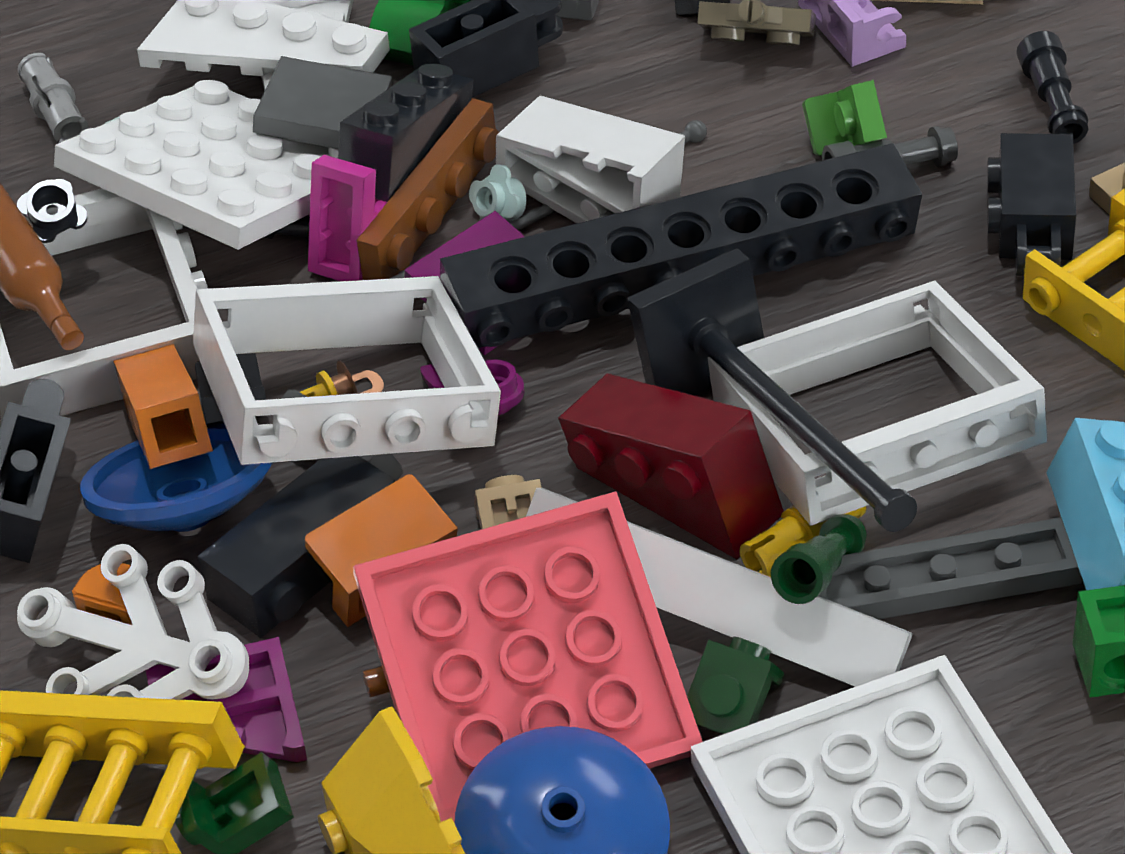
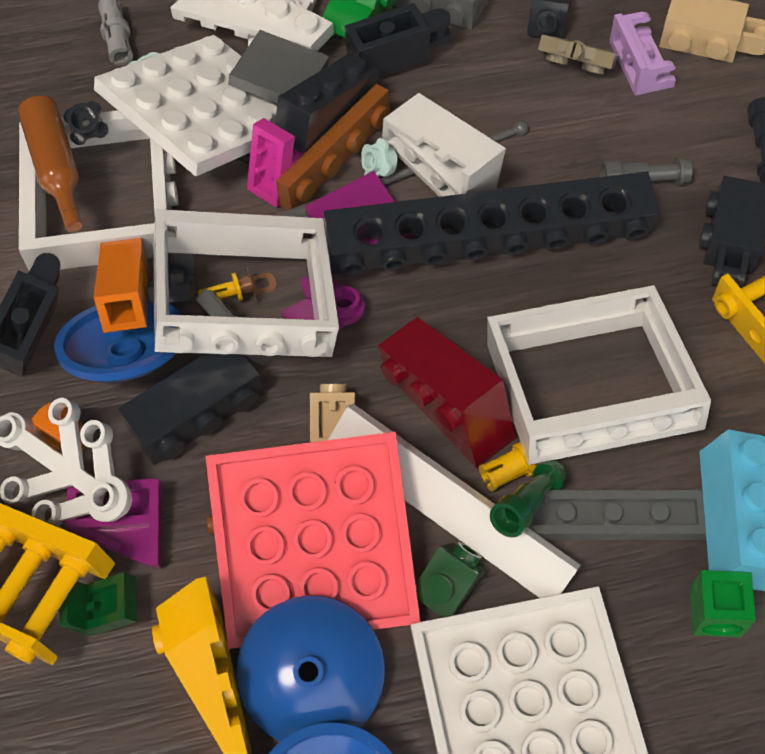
camera: 10 degrees right, 15 degrees up
(379, 526) = (241, 418): orange panel -> none
(711, 315) = (489, 291): black tile -> none
(844, 116) = (620, 141): bright green bracket -> none

